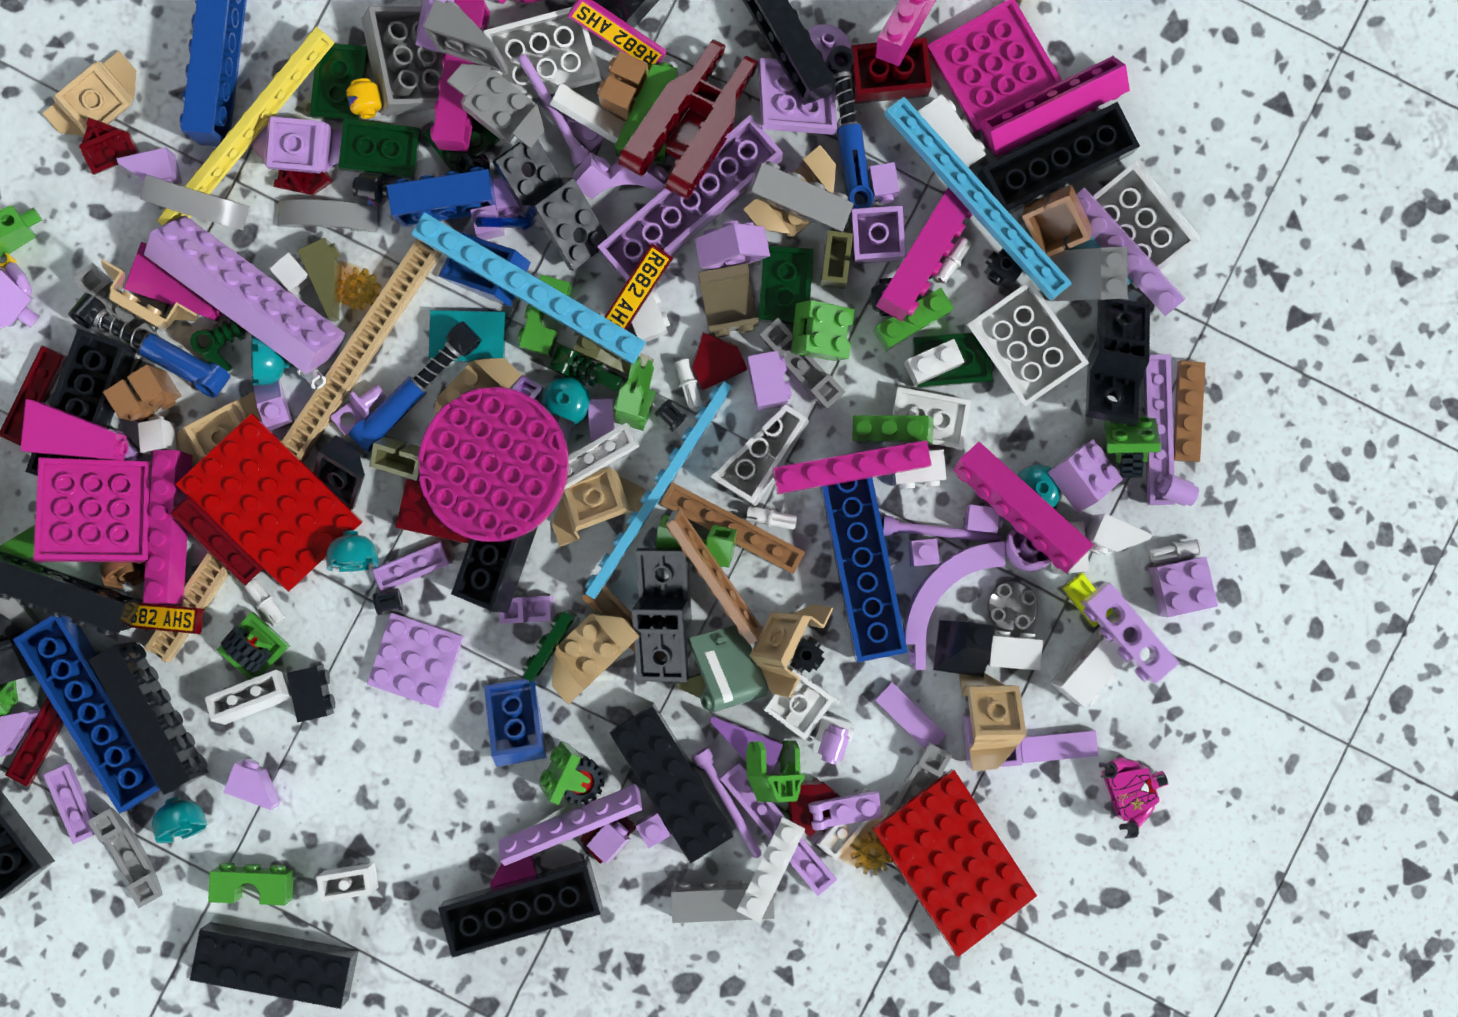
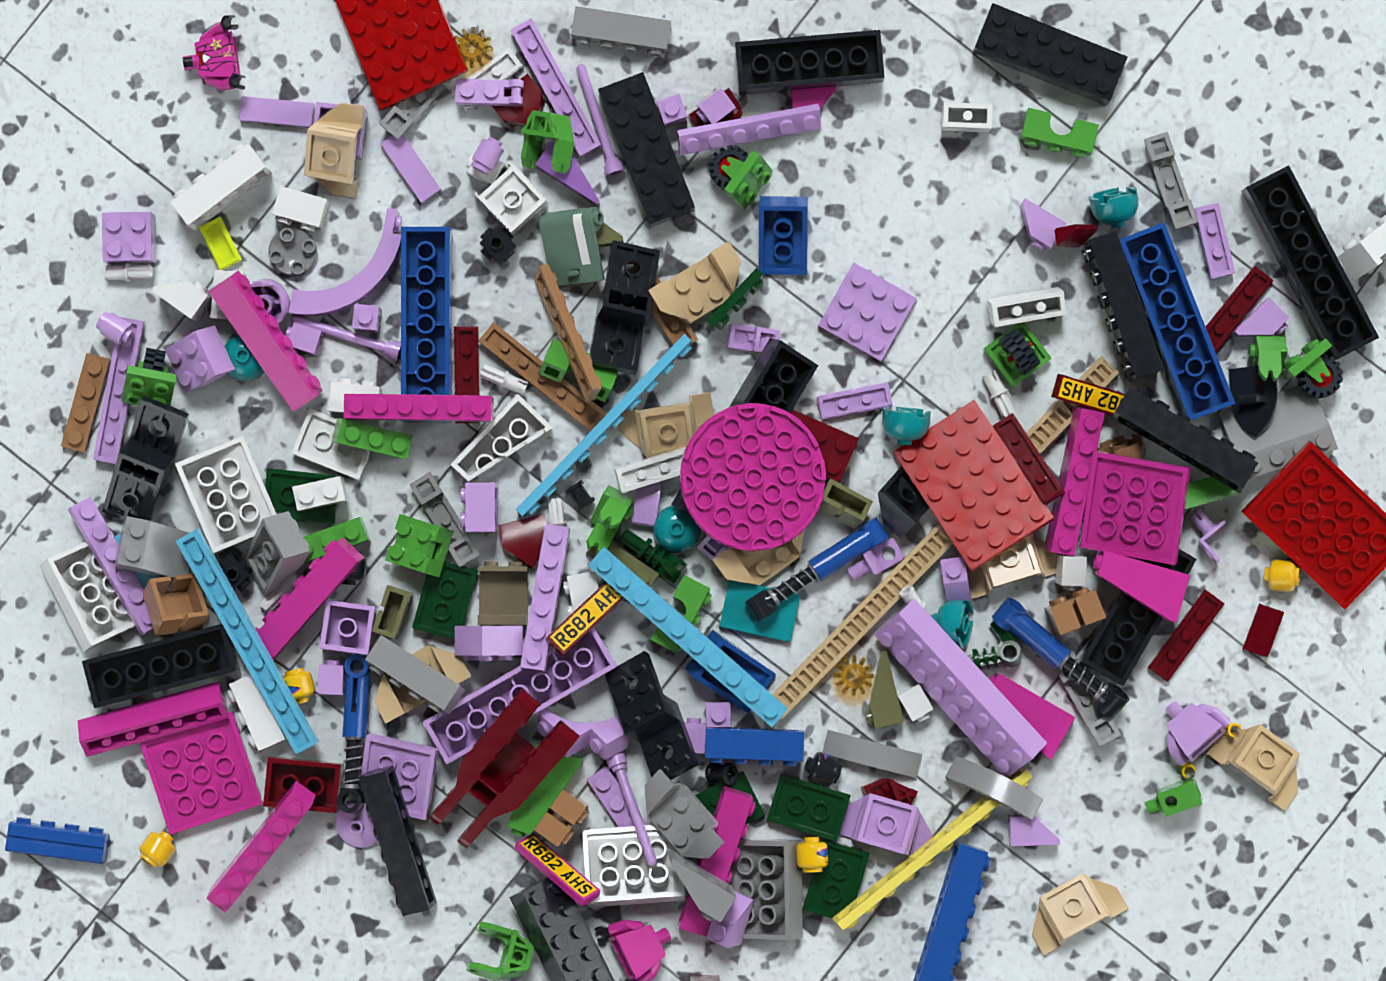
camera: 165 degrees left, 0 degrees up
(24, 504) = (1208, 530): none -> lavender bracket
(105, 144) = (1069, 860): dark red slope -> none
(132, 304) = (1068, 698): tan piece -> none
(214, 780) = (1074, 235): none -> dark red slope
(311, 693) = (970, 300): black brick -> none
(388, 601) = (881, 371): black bush -> none
(501, 222) = (686, 708): clear blue piece -> none
(587, 113) = (601, 800): white tile -> none
(683, 302) = (545, 597): none -> lavender plate
(770, 870) = (569, 51): white plate -> none
(778, 644) = (519, 259): tan piece -> none
(812, 527) = (466, 361): none -> dark red tile
(914, 169) = (300, 684): none -> yellow head
(963, 647) = (348, 221): black slope -> none
(965, 295) = (276, 551): none -> light grey slope
(1160, 659) = (170, 172): lavender brick -> none

